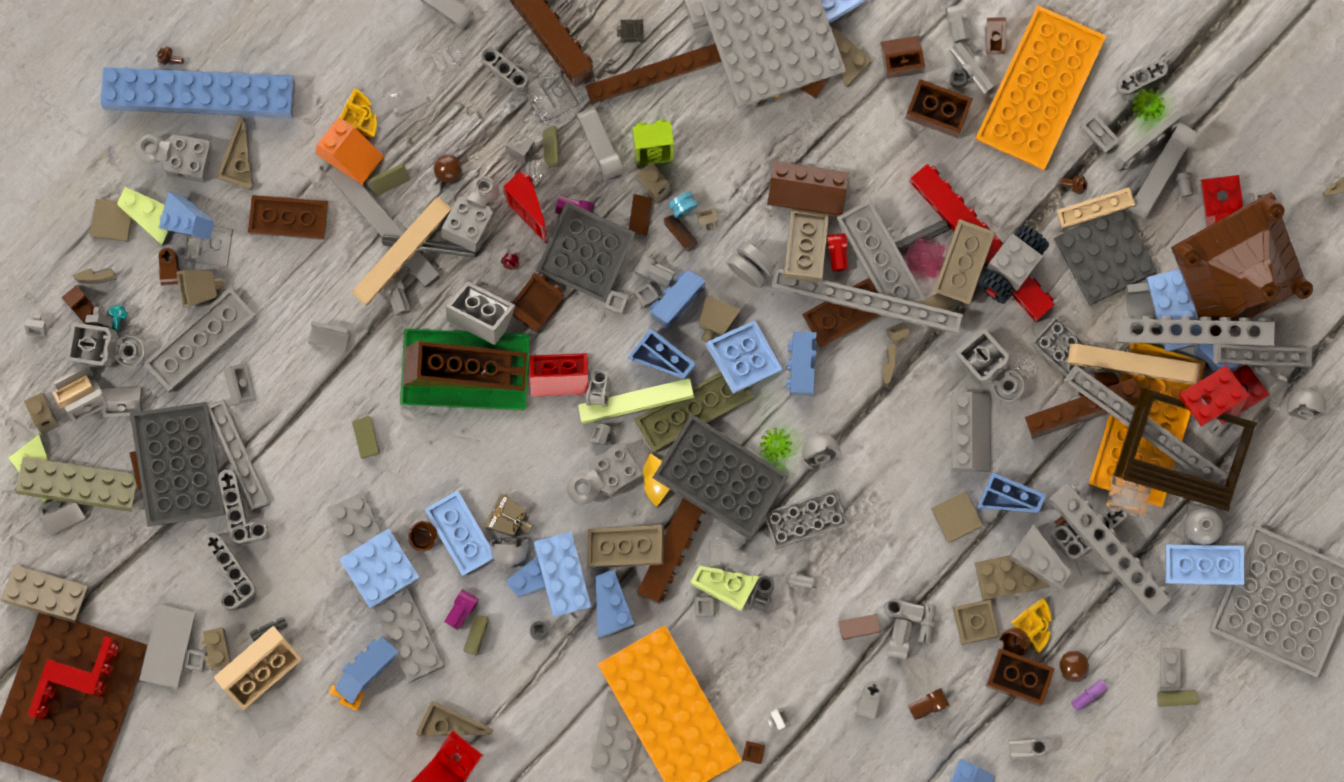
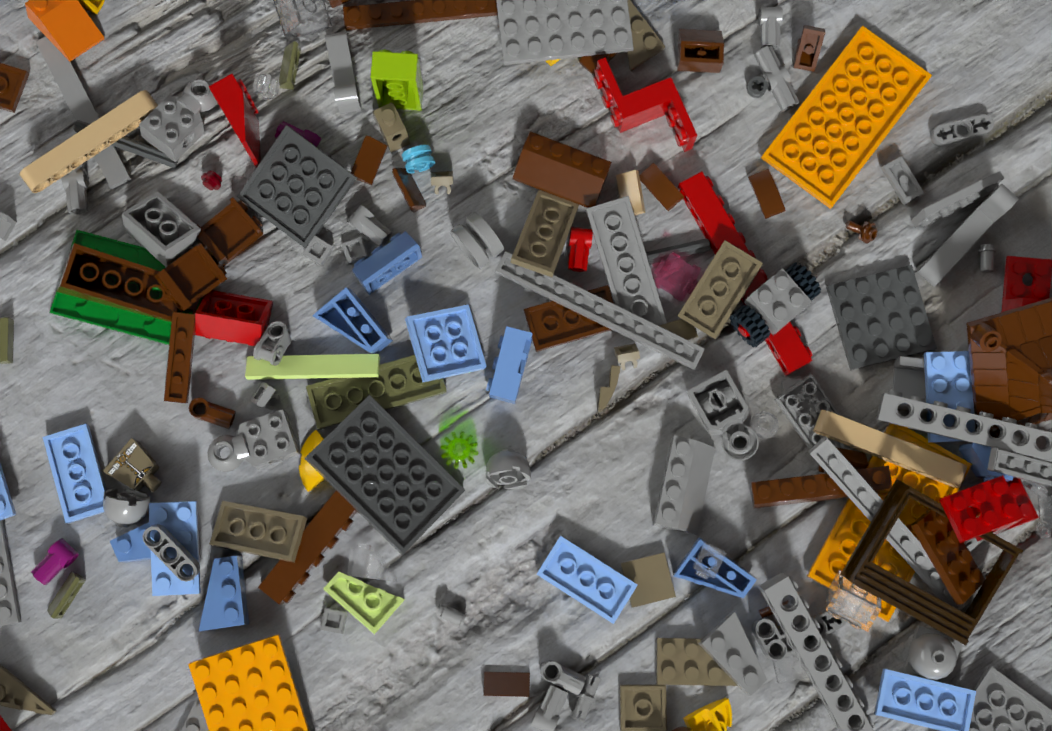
camera: 10 degrees right, 0 degrees up
(389, 179) = (102, 62): olive slope -> none
(422, 536) = (31, 467): reddish brown hair -> none
(447, 169) = (169, 64): reddish brown hair -> none
(517, 347) = (191, 276): none -> reddish brown panel
(522, 154) = (256, 62): light grey panel -> none
(523, 417) = (180, 357): none -> reddish brown plate
(544, 630) = (145, 606): dark grey bush -> none
(563, 459) = (213, 414): none -> reddish brown piece
(573, 577) = (174, 564): none -> light grey beam
(716, 318) = (426, 292): dark tan torso -> none
(761, 596) = (402, 623): dark grey piece -> none
(805, 519) = (473, 544): light grey tile -> none
(866, 117) = (645, 105): none -> red bracket
(868, 190) = (630, 186): none -> tan tile
(895, 184) = (661, 187): none -> reddish brown slope
(906, 527) = (587, 579): none -> light blue plate
(938, 108) = (728, 114): reddish brown brick -> none
(986, 170) = (766, 193): none -> reddish brown slope
(1010, 481) = (708, 550): none -> clear brick
(1096, 208) = (882, 262): tan tile -> none
(1149, 97) = (959, 166): clear neon green gear -> none
(1200, 442) = (948, 556): none -> reddish brown plate

